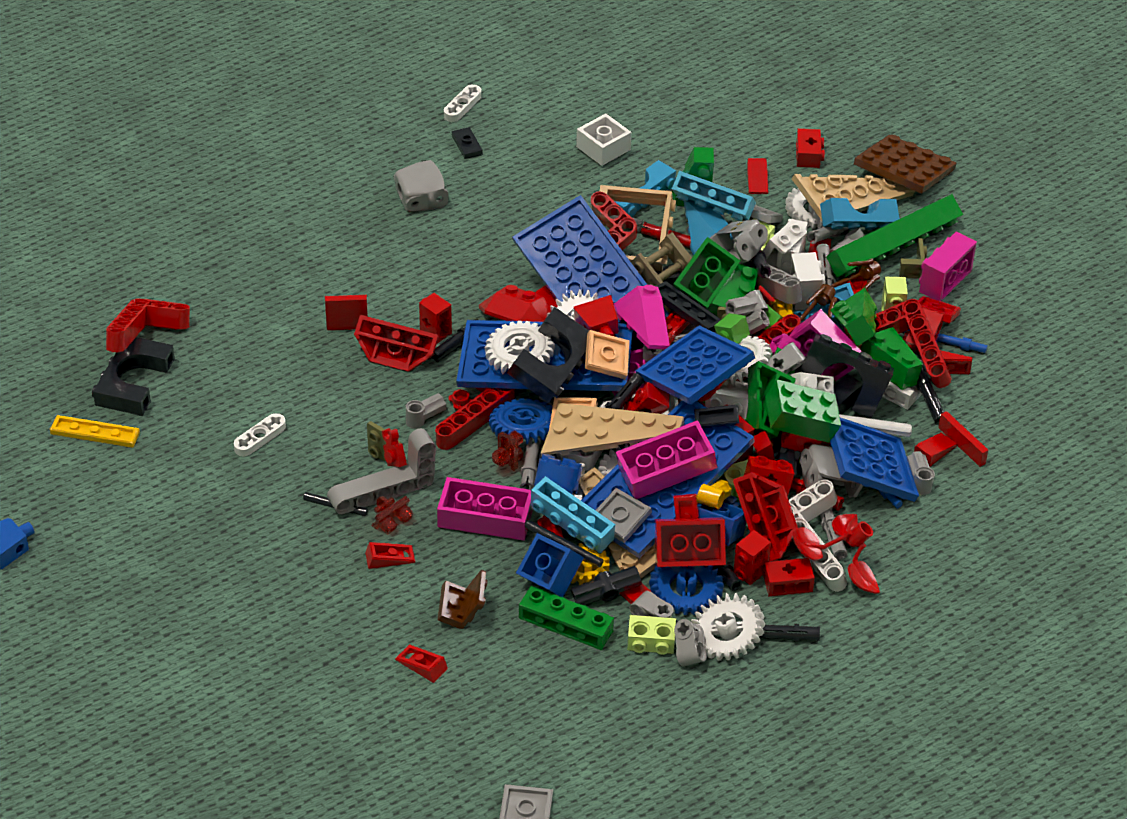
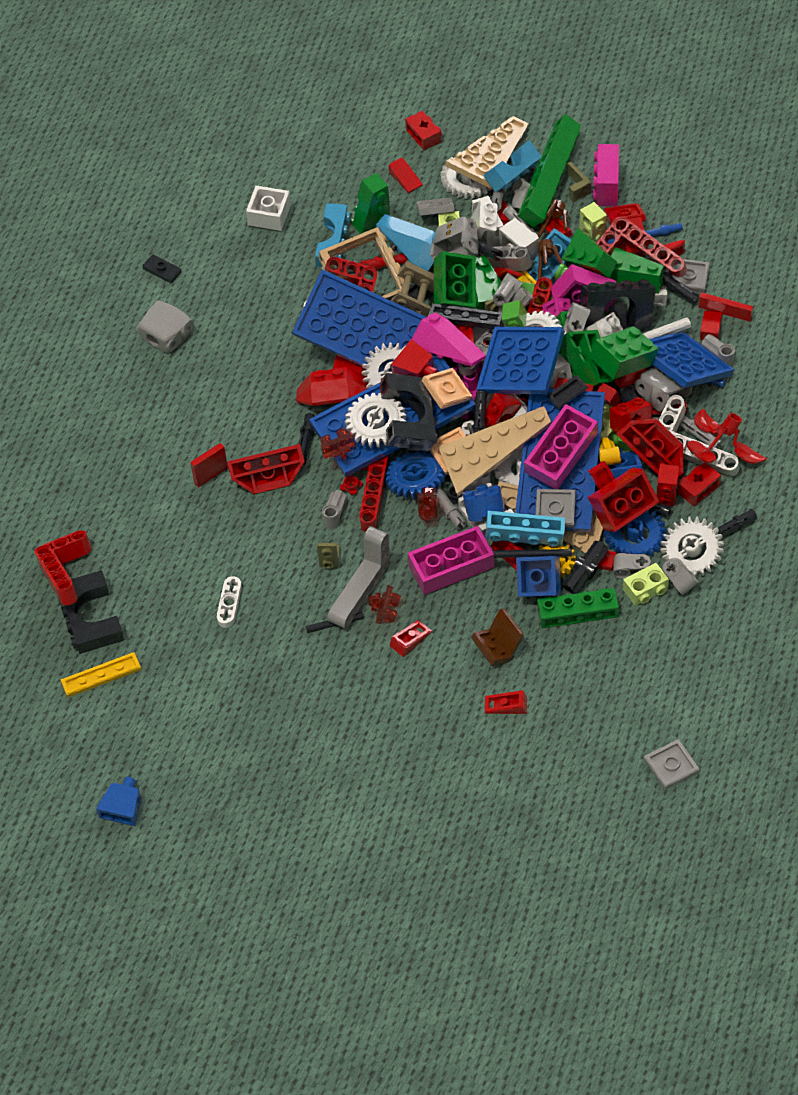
camera: 30 degrees left, 10 degrees up
(393, 450) = (351, 556): red plate -> none
(435, 316) = (278, 430): red brick -> none
(467, 352) = (337, 446): none -> clear red hips
(470, 94) = (123, 231): white beam -> none
(713, 195) = (403, 212): medium azure brick -> none
(905, 163) = (504, 105): reddish brown plate -> none
(958, 396) = (695, 276): none -> light grey tile

